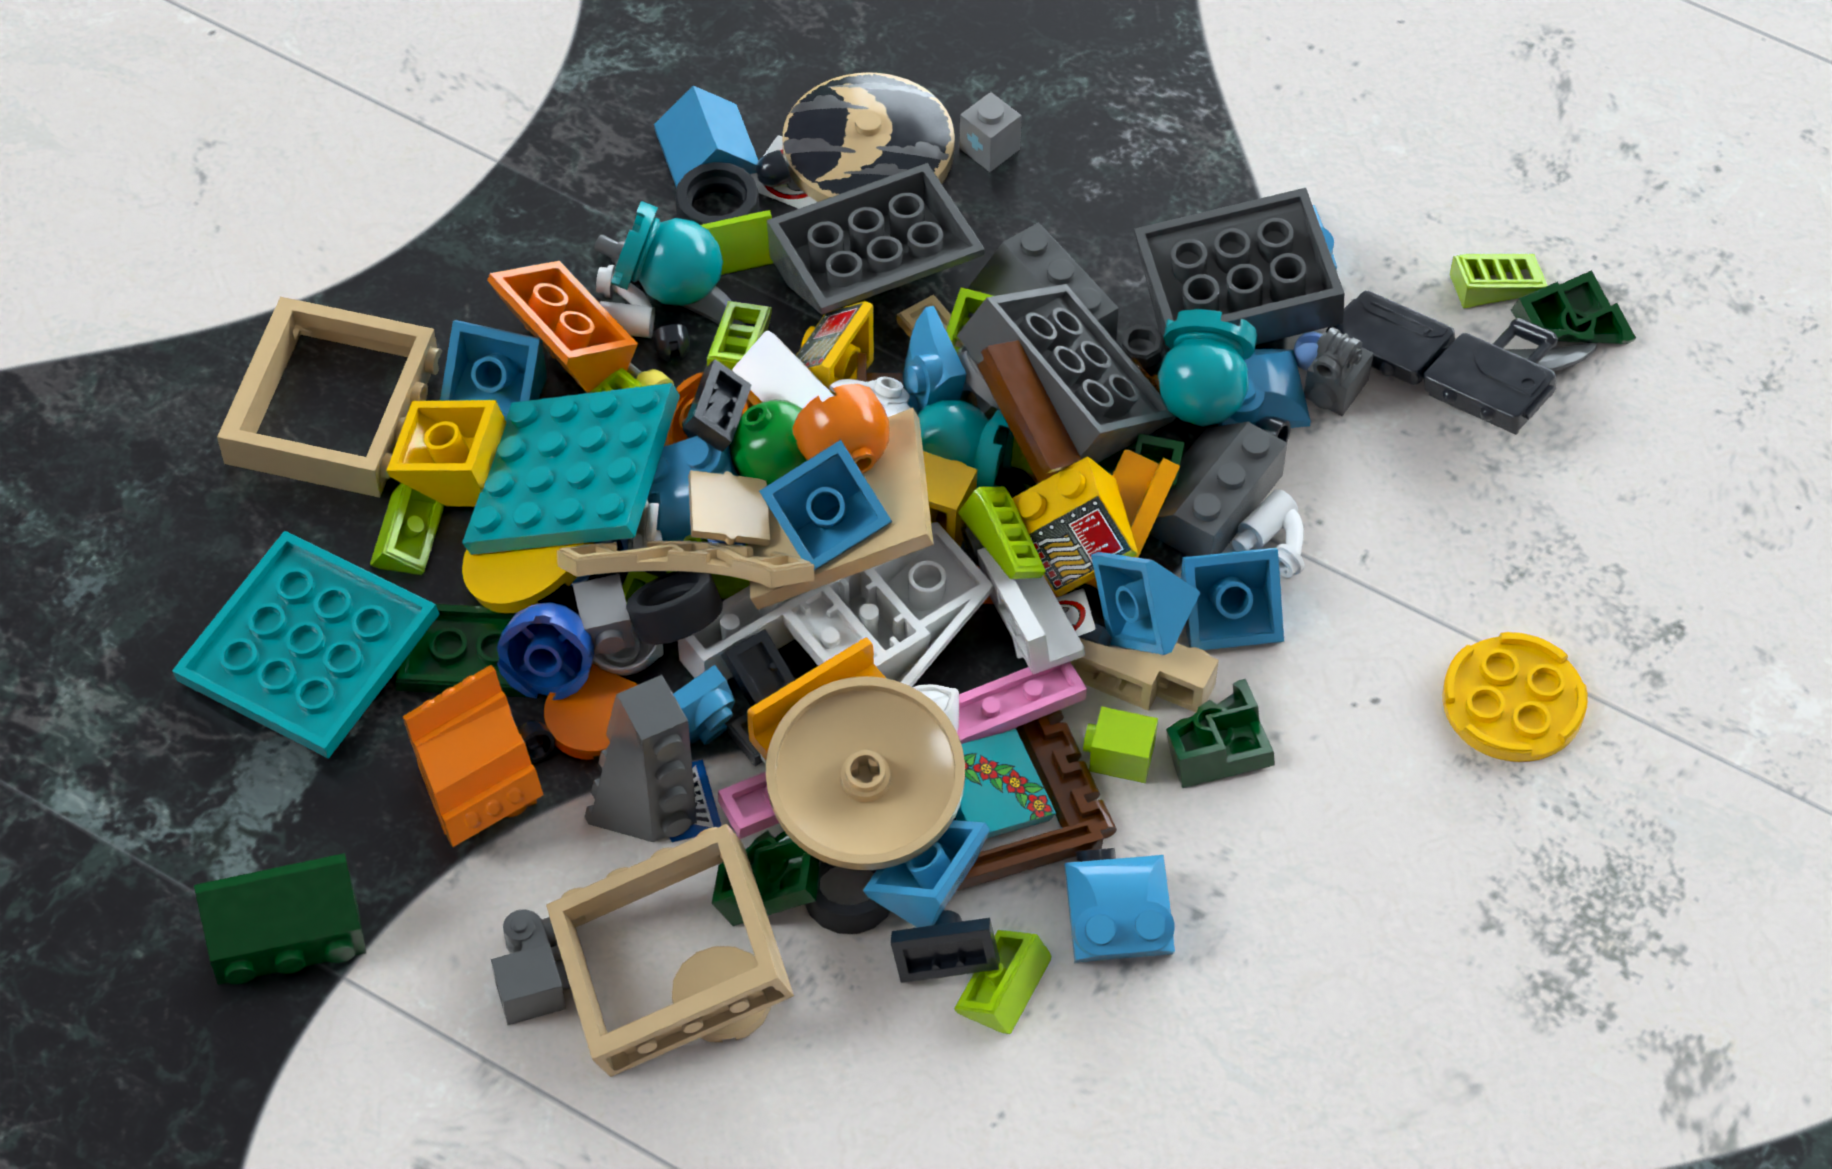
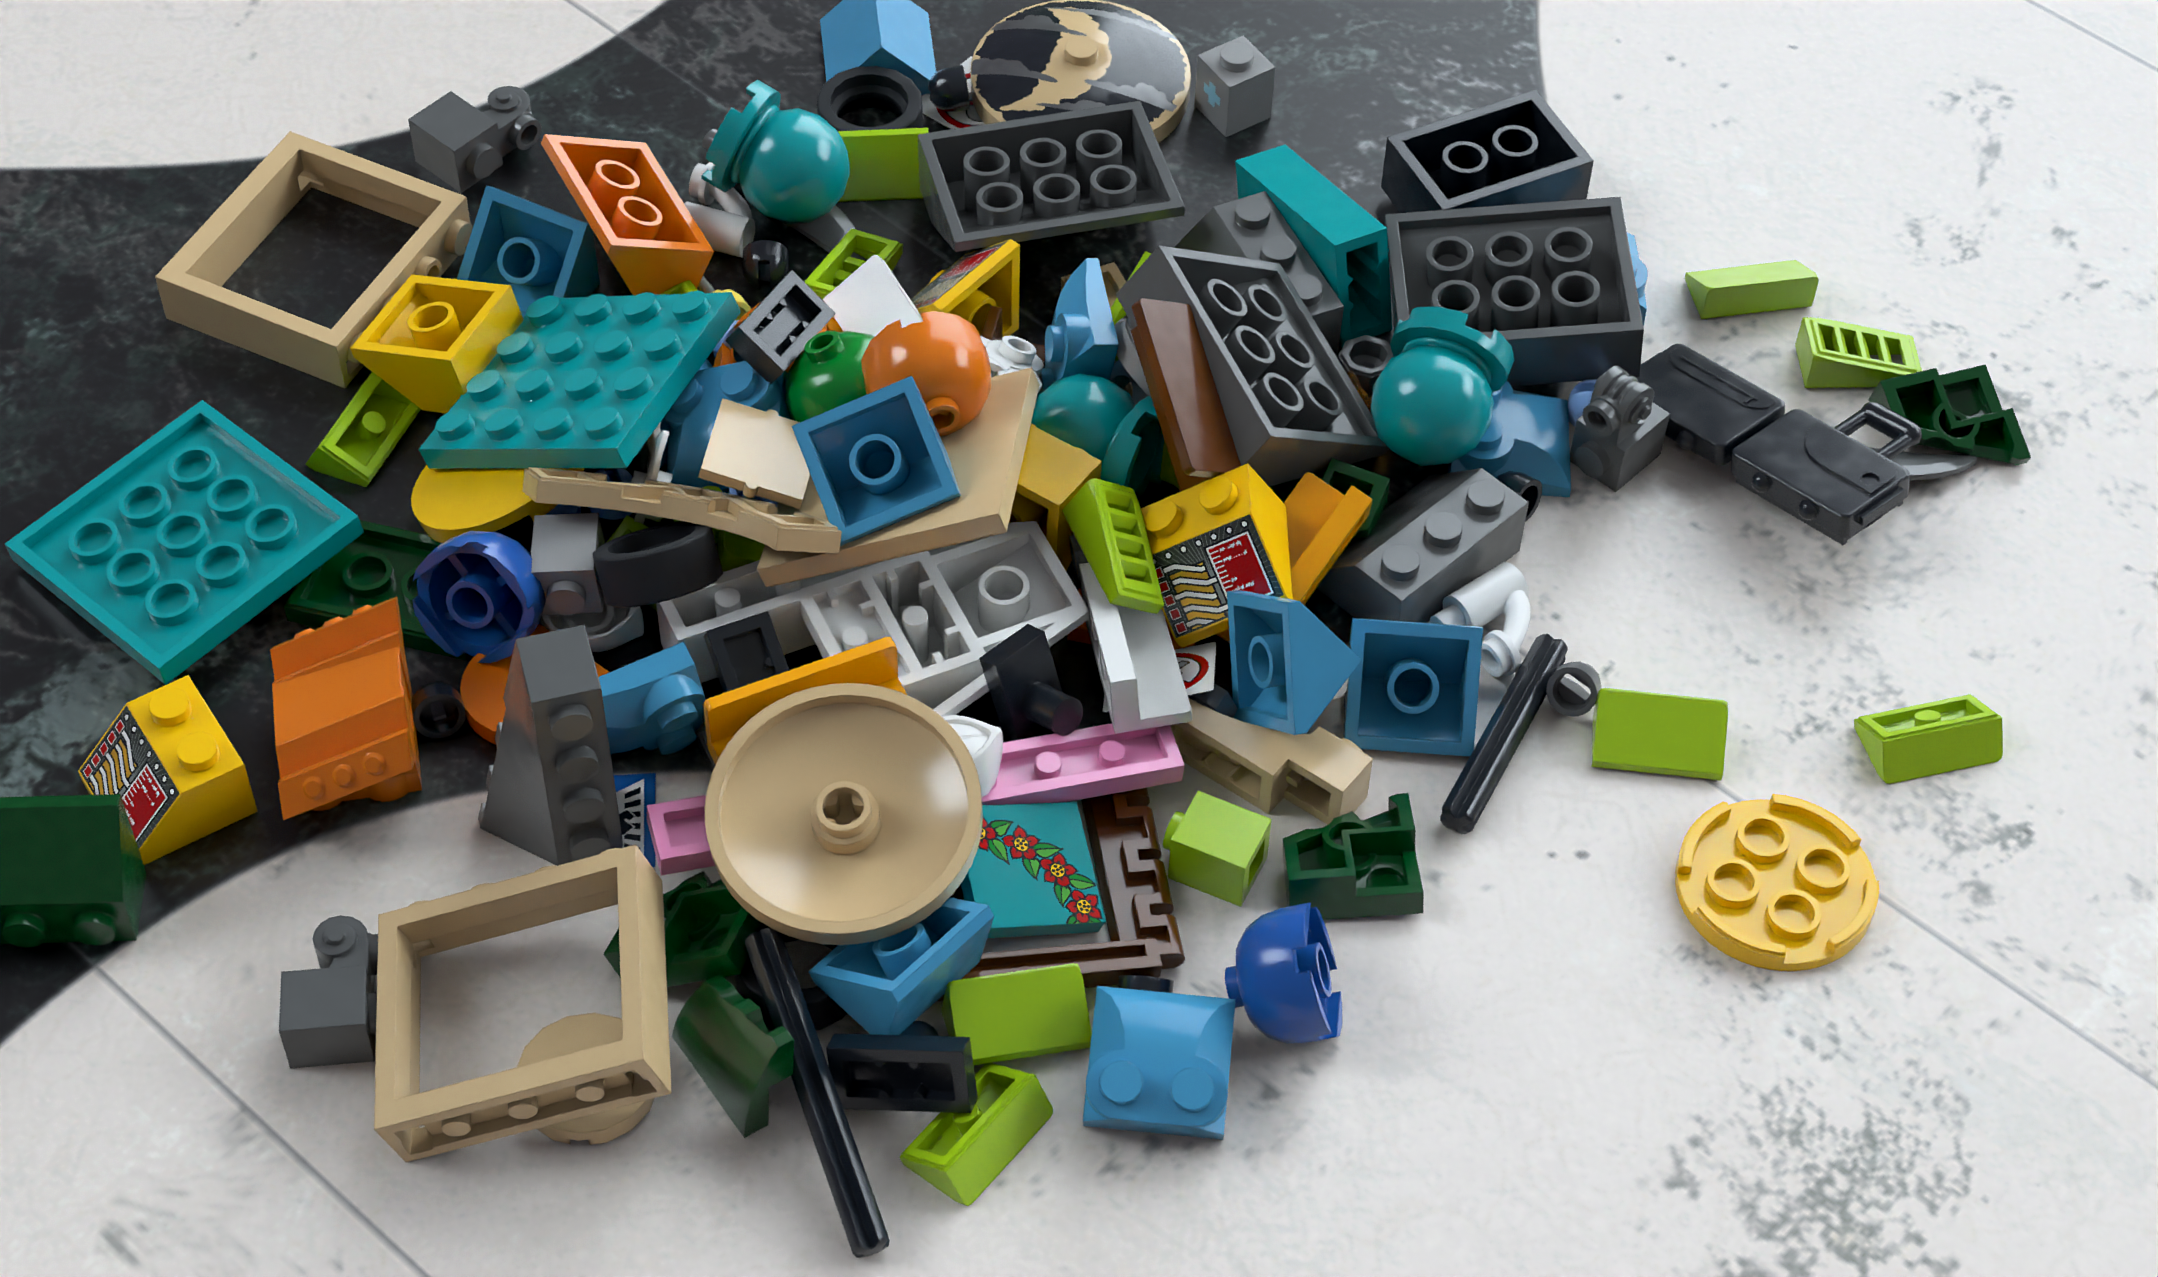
camera: 10 degrees right, 5 degrees down
(354, 815) = (170, 769): none -> yellow slope
(415, 279) = (469, 144): none -> dark grey brick
(824, 956) = (734, 1051): none -> dark green slope
(890, 974) = (818, 1095): none -> black axle
(963, 653) = (1028, 688): none -> black tile
(1013, 891) = (1019, 1013): none -> lime slope
(1095, 244) = (1335, 232): none -> teal slope
(1193, 831) = (1286, 976): none -> blue cylinder
(1197, 169) = (1487, 158): none -> black brick
(1303, 620) = (1502, 735): none -> black axle
(1342, 583) = (1567, 695): none -> dark grey hinge
(1409, 234) = (1752, 288): none -> lime slope
(1412, 601) = (1659, 733): none -> lime slope
(1602, 569) = (1931, 738): none -> lime slope

